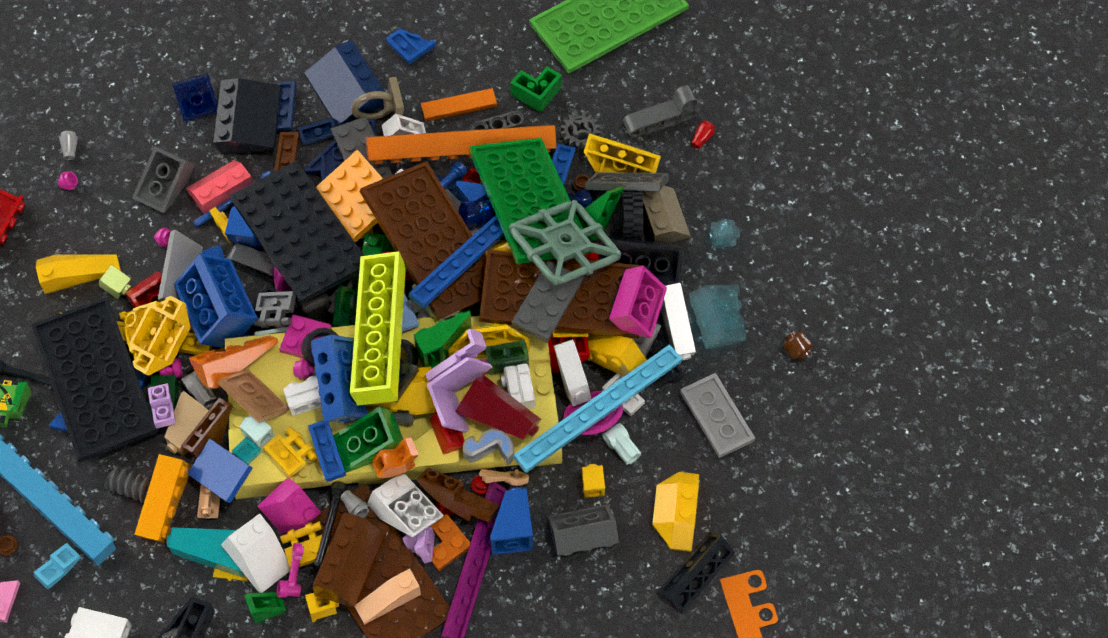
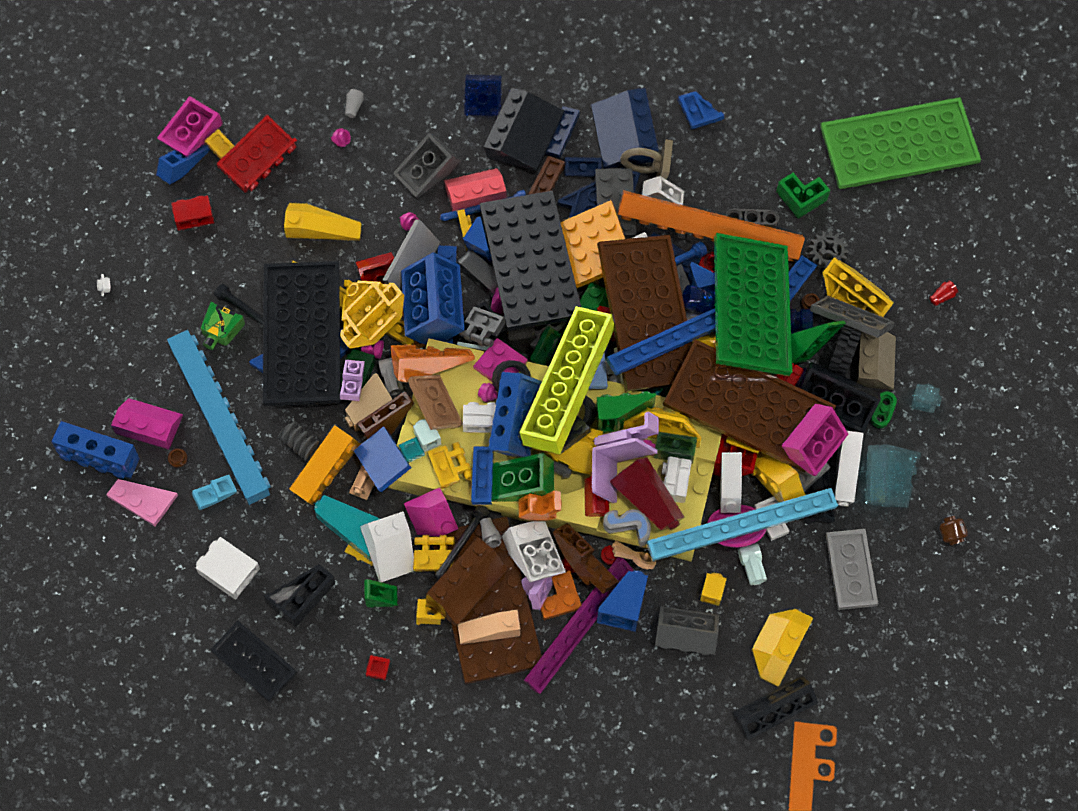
camera: 20 degrees right, 5 degrees up
(115, 282) = (350, 249): yellowish green brick -> none
(289, 587) = (408, 586): dark pink brick -> none
(459, 105) = (723, 185): orange tile -> none
(546, 305) = (731, 408): dark grey plate -> none
(563, 251) = (761, 364): sand green plate -> none
(662, 115) = (912, 261): dark grey beam -> none
(690, 259) = (884, 411): none -> green plate

